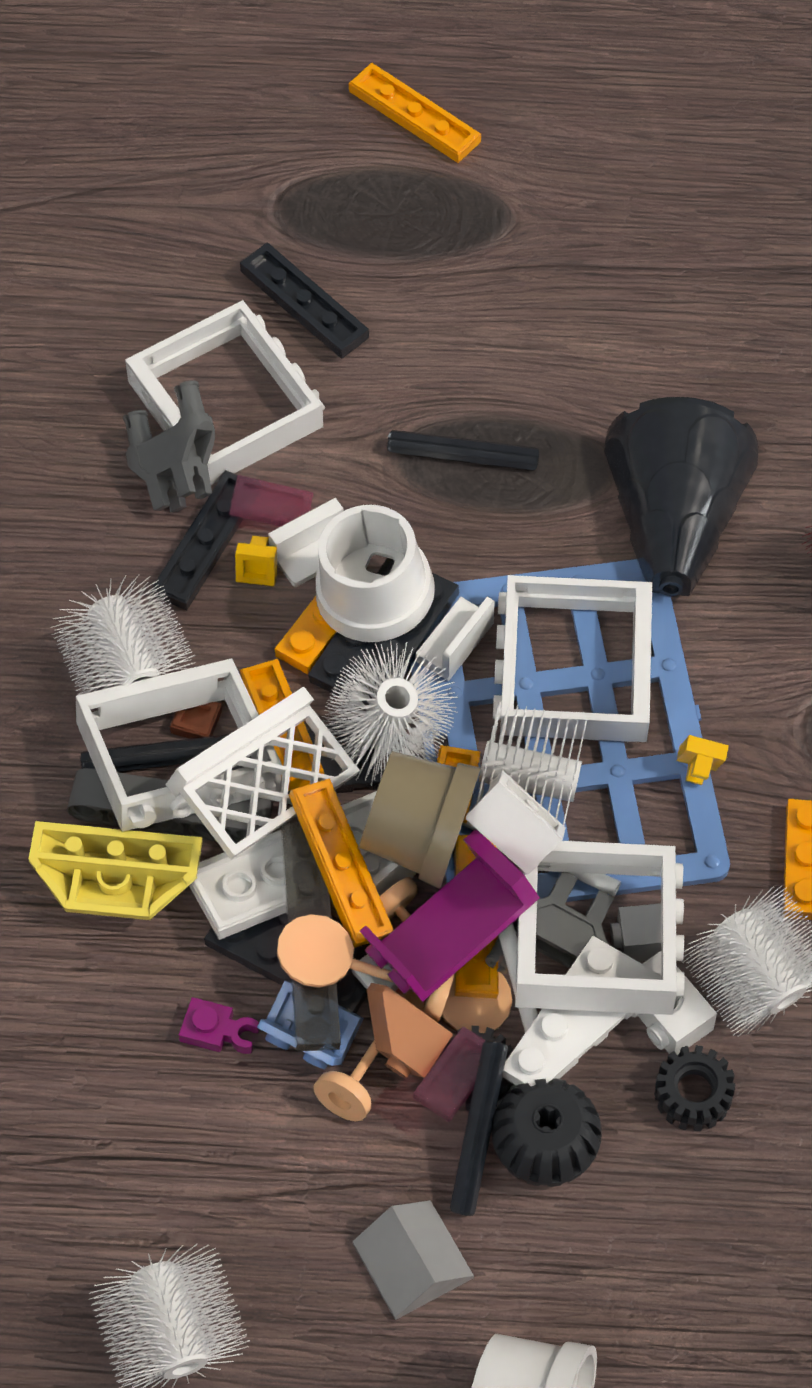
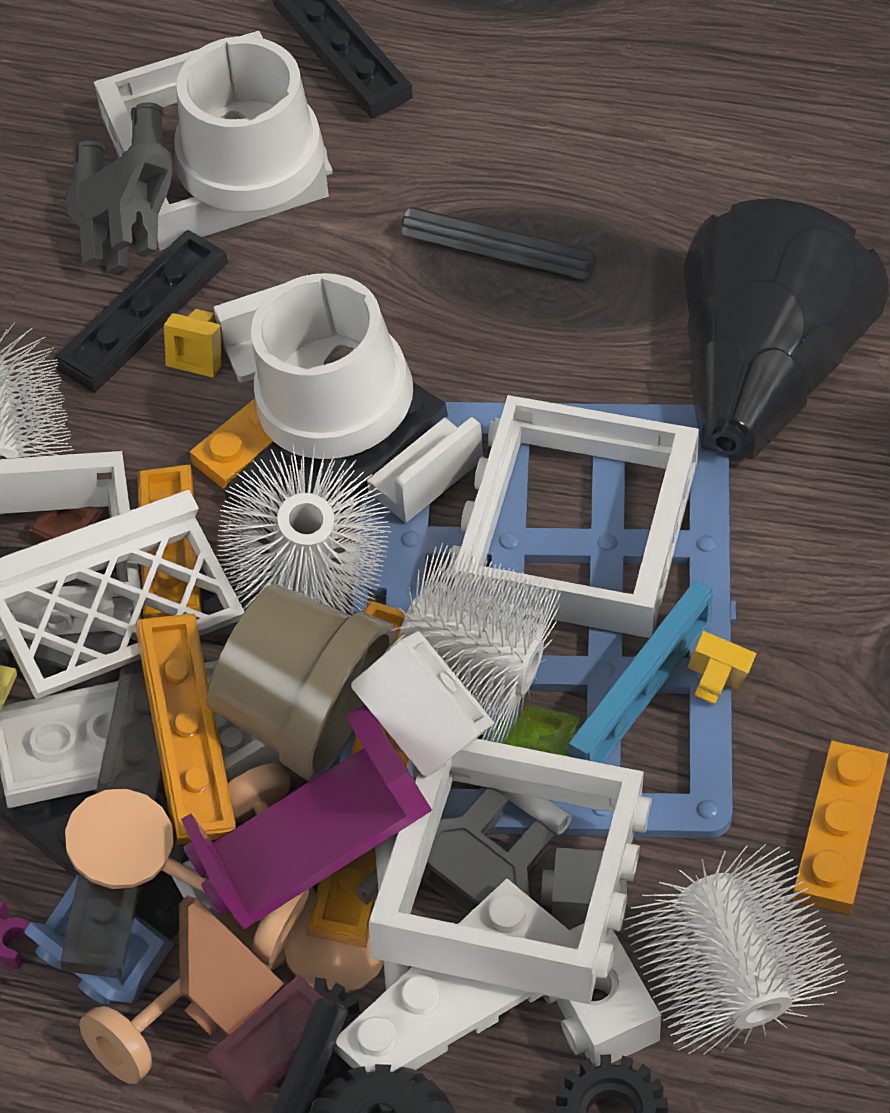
camera: 15 degrees right, 5 degrees down
(268, 501) = (227, 270): clear pink tile -> none
(285, 404) = (251, 159): none -> white piece
(588, 824) = (544, 730): none -> clear neon green tile
(651, 773) = (644, 676): none -> dark azure tile

